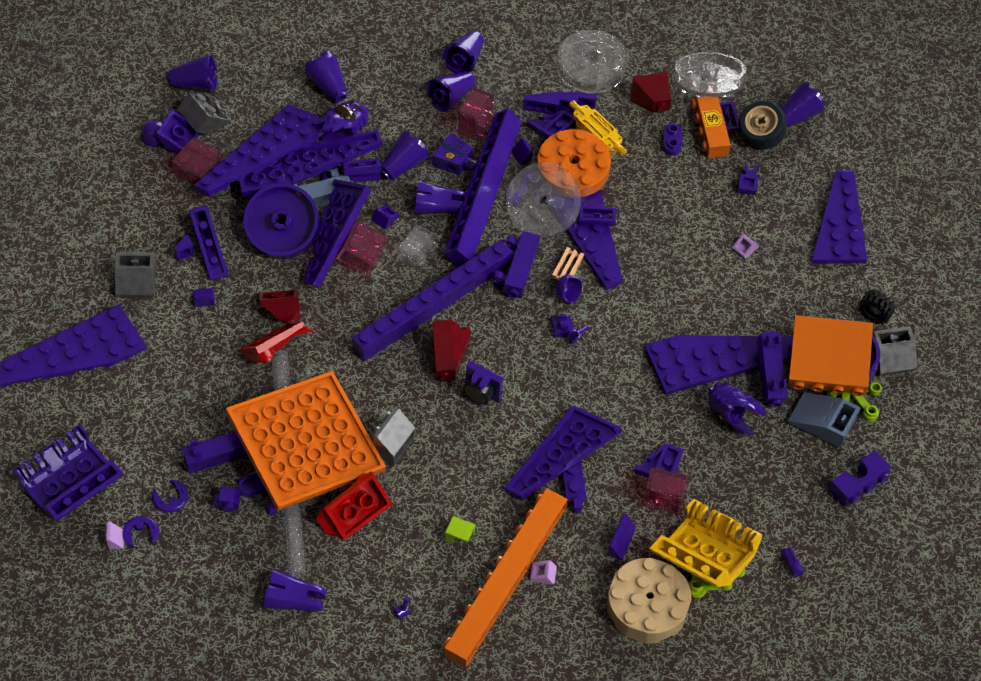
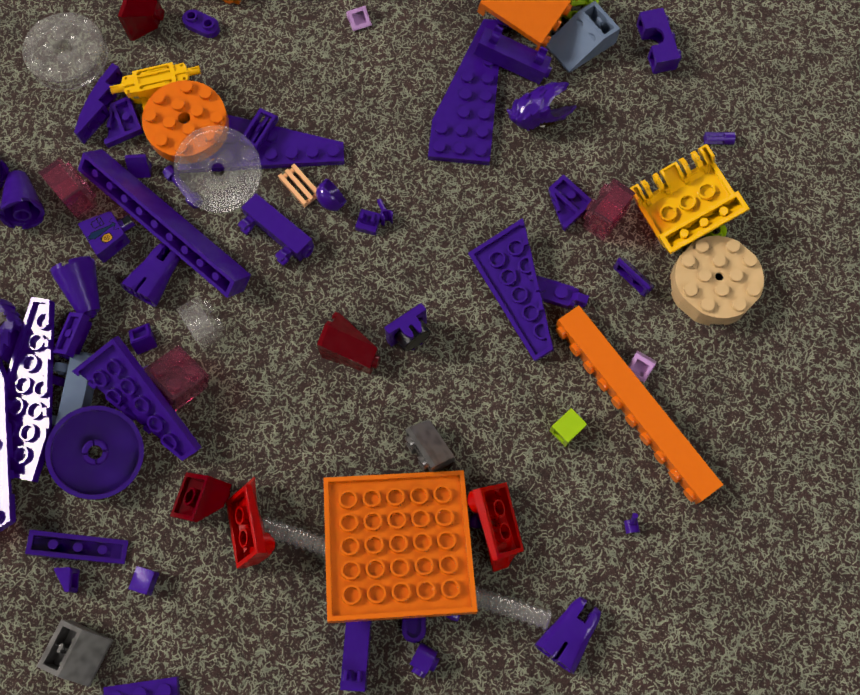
camera: 60 degrees left, 15 degrees up
(431, 300) = (277, 337): dark purple brick -> none

